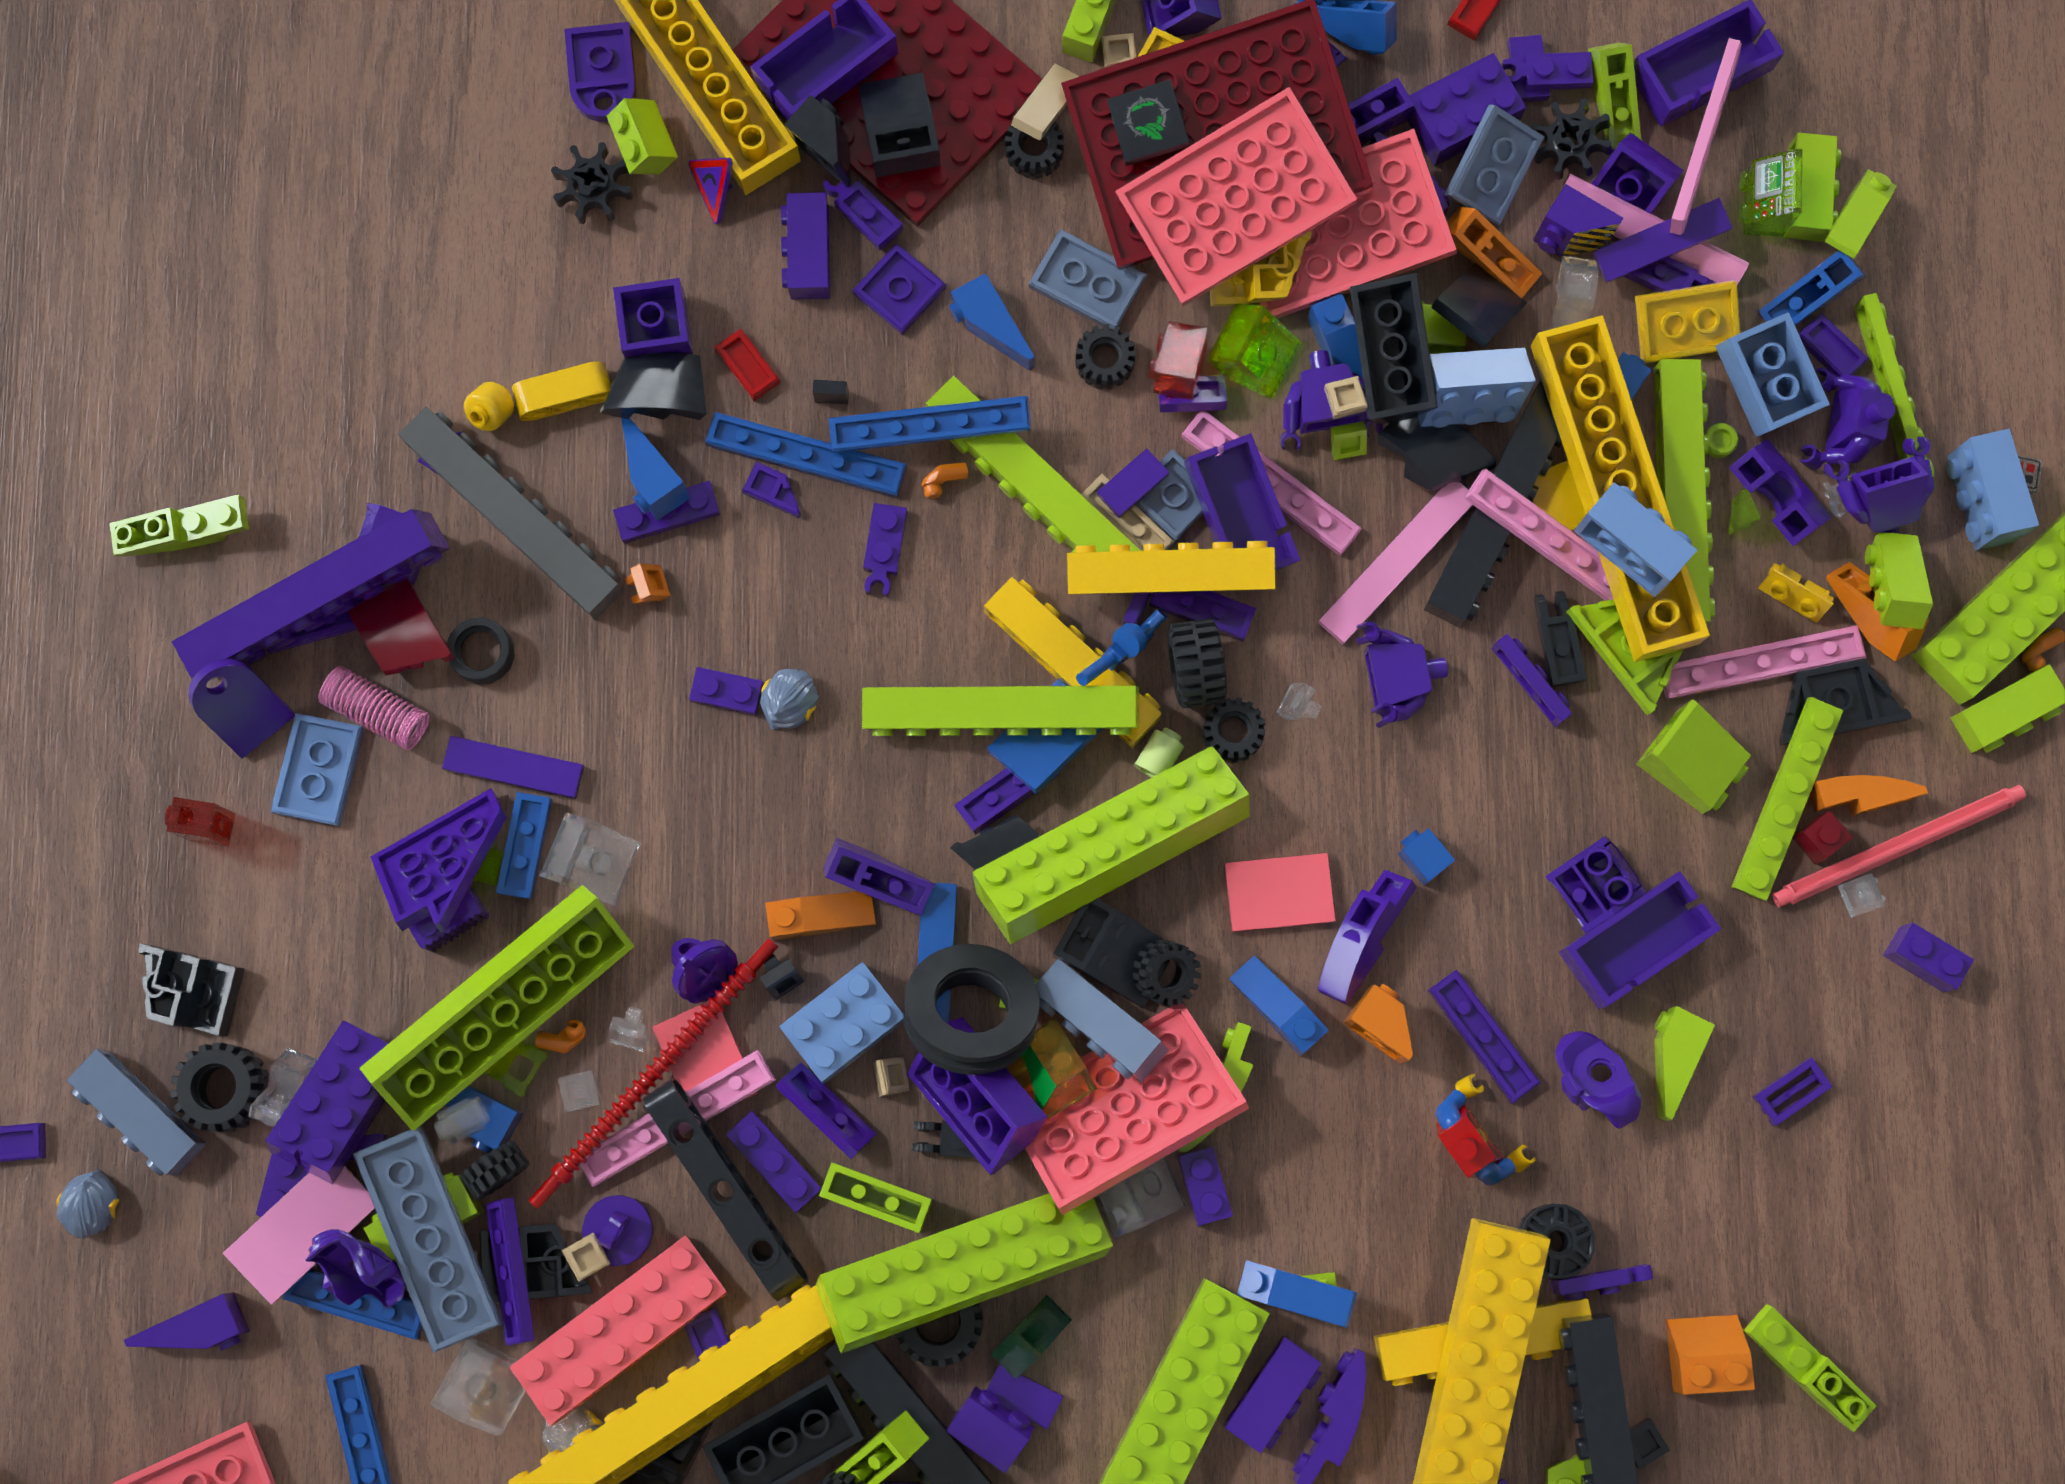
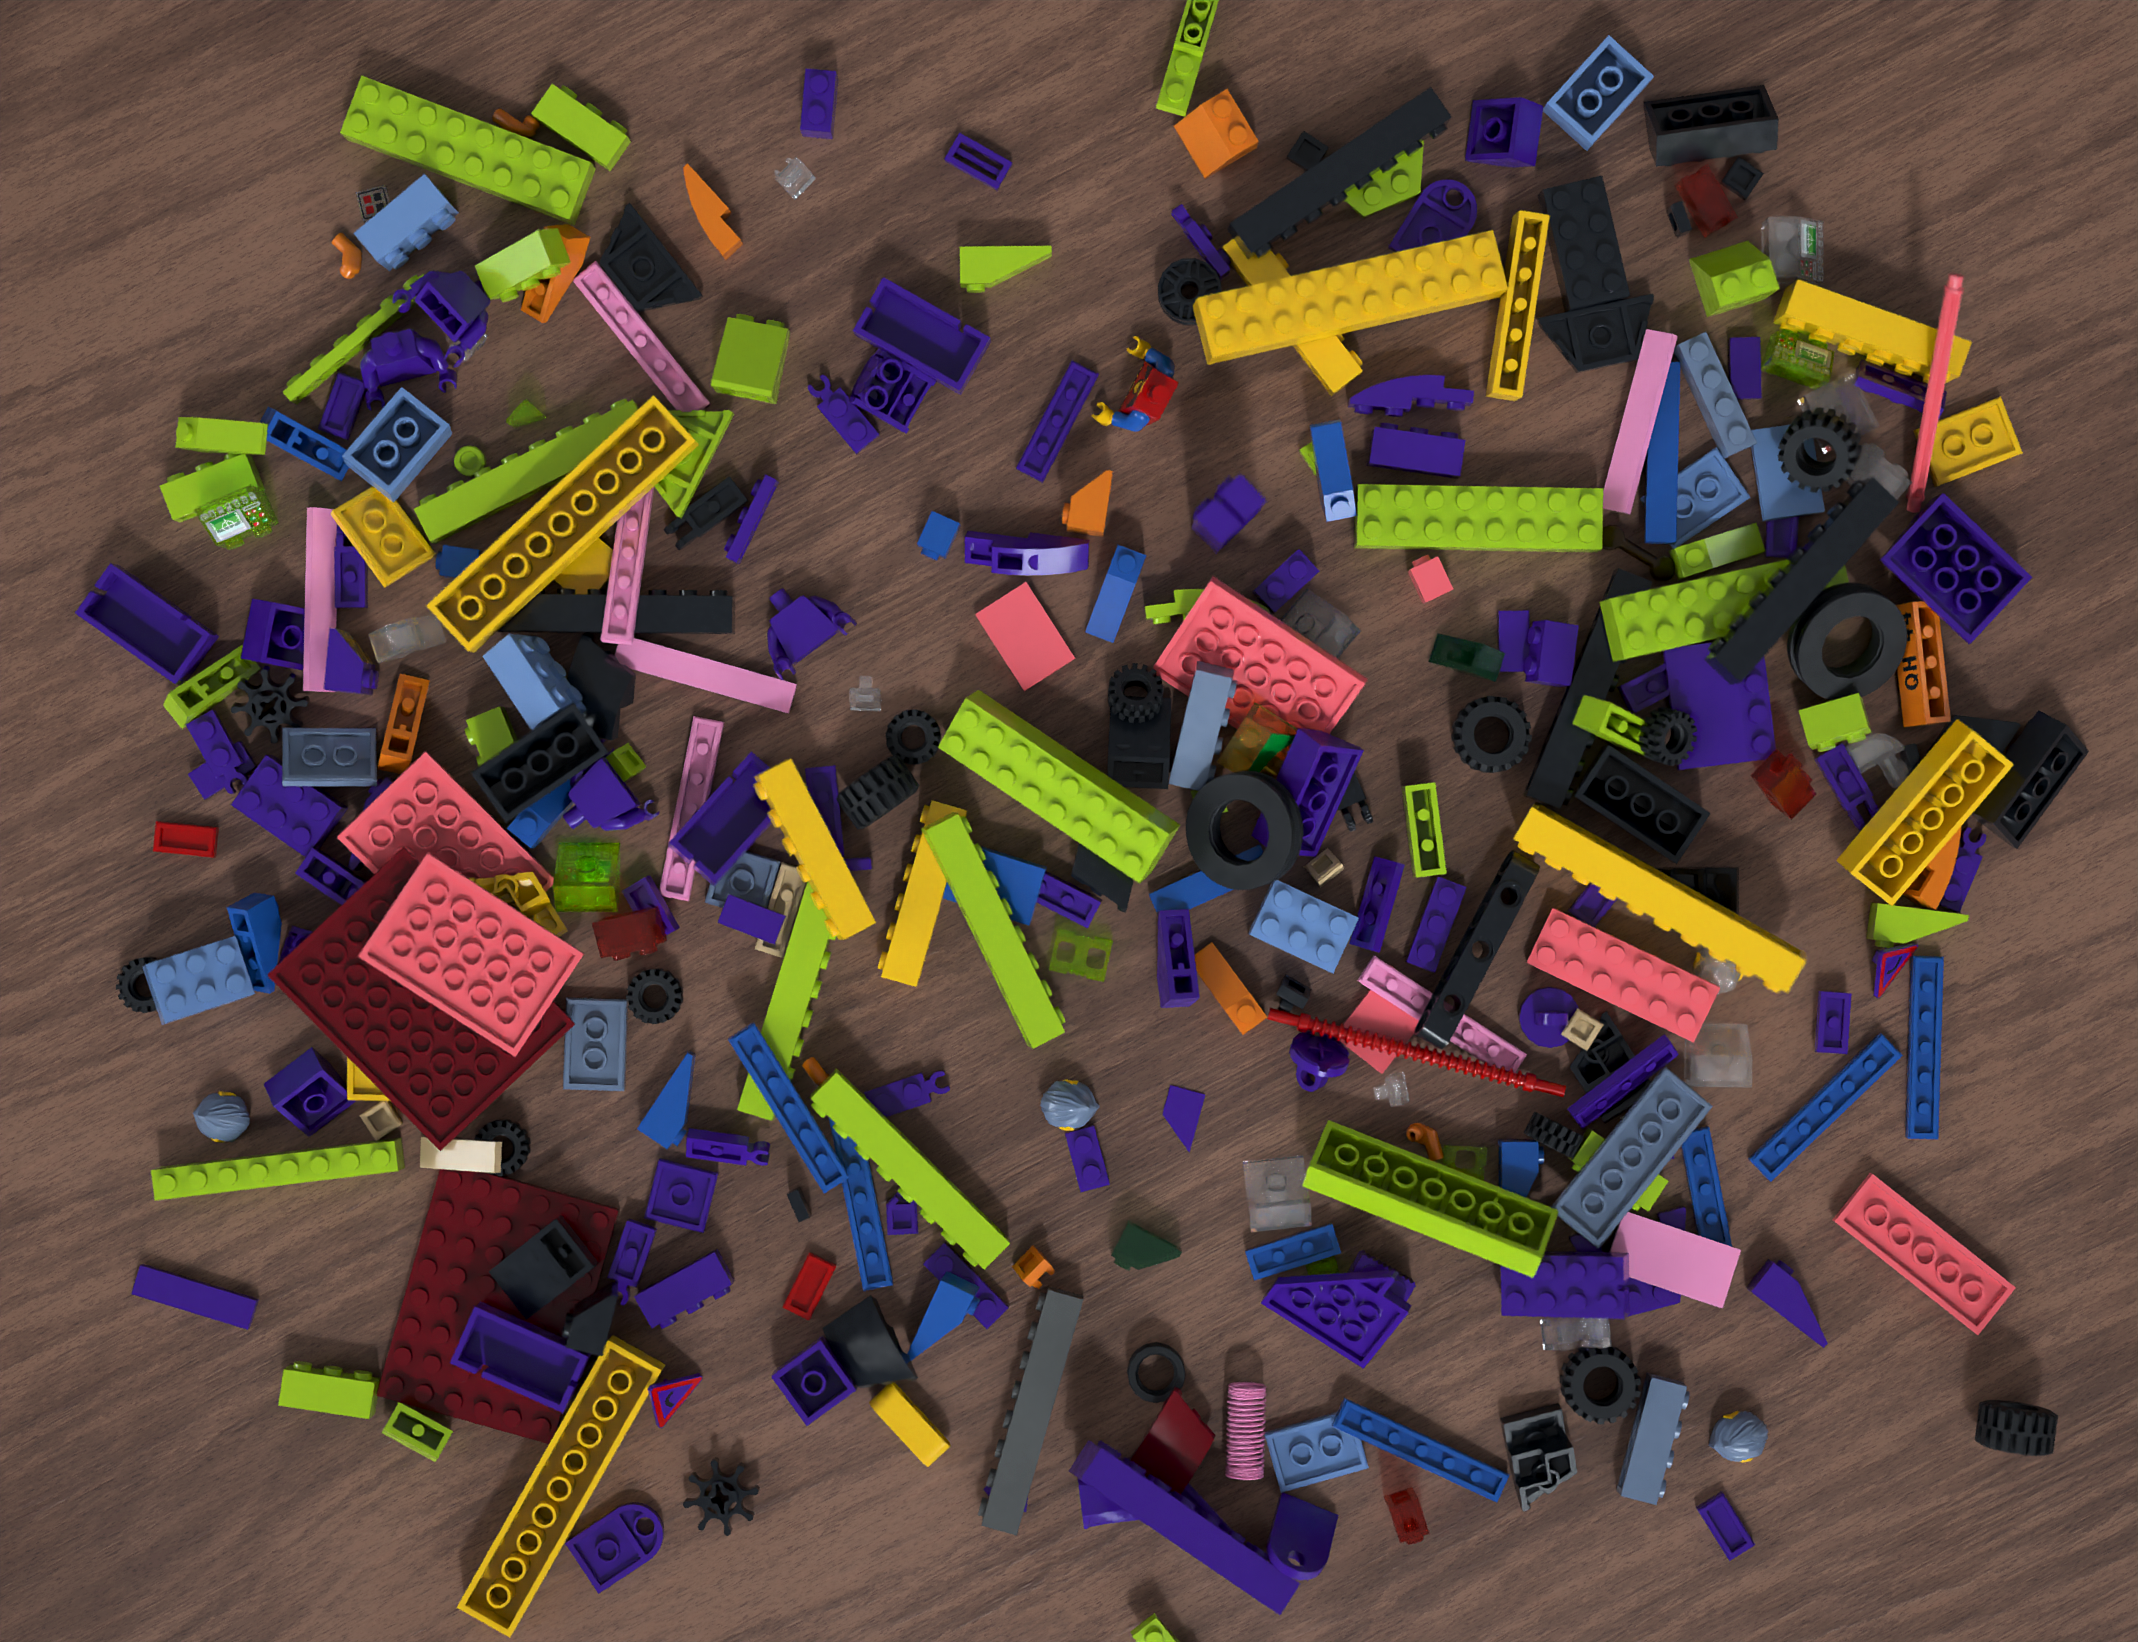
camera: 115 degrees left, 10 degrees up
(258, 872) = (1420, 1450): none -> blue tile
(371, 1275) = (1694, 1198): dark purple piece -> none
(461, 1120) = (1530, 1179): clear brick -> none
(489, 406) = (954, 1475): yellow head -> none
(513, 767) = (1235, 1295): dark purple tile -> none
(579, 1091) = (1460, 1102): clear tile -> none
(608, 699) = (1142, 1248): none -> clear green slope
(642, 136) = (661, 1475): lime brick -> none
(721, 809) = (1183, 1112): none -> dark purple sticker
(807, 511) = (910, 1169): none -> lime brick
(922, 350) = (725, 1148): none -> dark purple plate
(939, 792) = (1078, 965): none -> clear neon green piece
(959, 1268) = (1447, 737): lime brick -> none
(1127, 643) = (889, 856): blue piece -> none
(1133, 1340) = (1429, 578): none -> coral brick
(1148, 122) = (442, 1059): black slope -> none
(1159, 752) = (962, 786): yellowish green brick -> none
(1308, 1157) = (1230, 511): none -> dark purple piece
(1345, 397) = (598, 780): tan tile -> none
(1478, 305) = (459, 711): black tile -> none
(1591, 824) = (844, 416): none -> dark purple plate
(1616, 1098) = (1059, 297): dark purple piece -> none
(1635, 539) = (609, 490): medium blue brick -> none
(1658, 243) = (326, 587): dark purple tile -> none
(1705, 137) = (222, 593): bright pink tile -> none
(1787, 798) = (746, 271): lime plate -> none
(1795, 505) = (481, 407): dark purple arch -> none
(1806, 599) = (571, 327): yellow hinge -> none
(1822, 837) = (764, 230): dark red brick -> none
(1898, 846) = (738, 165): coral piece -> none
(1976, 424) = (351, 256): none -> orange arm

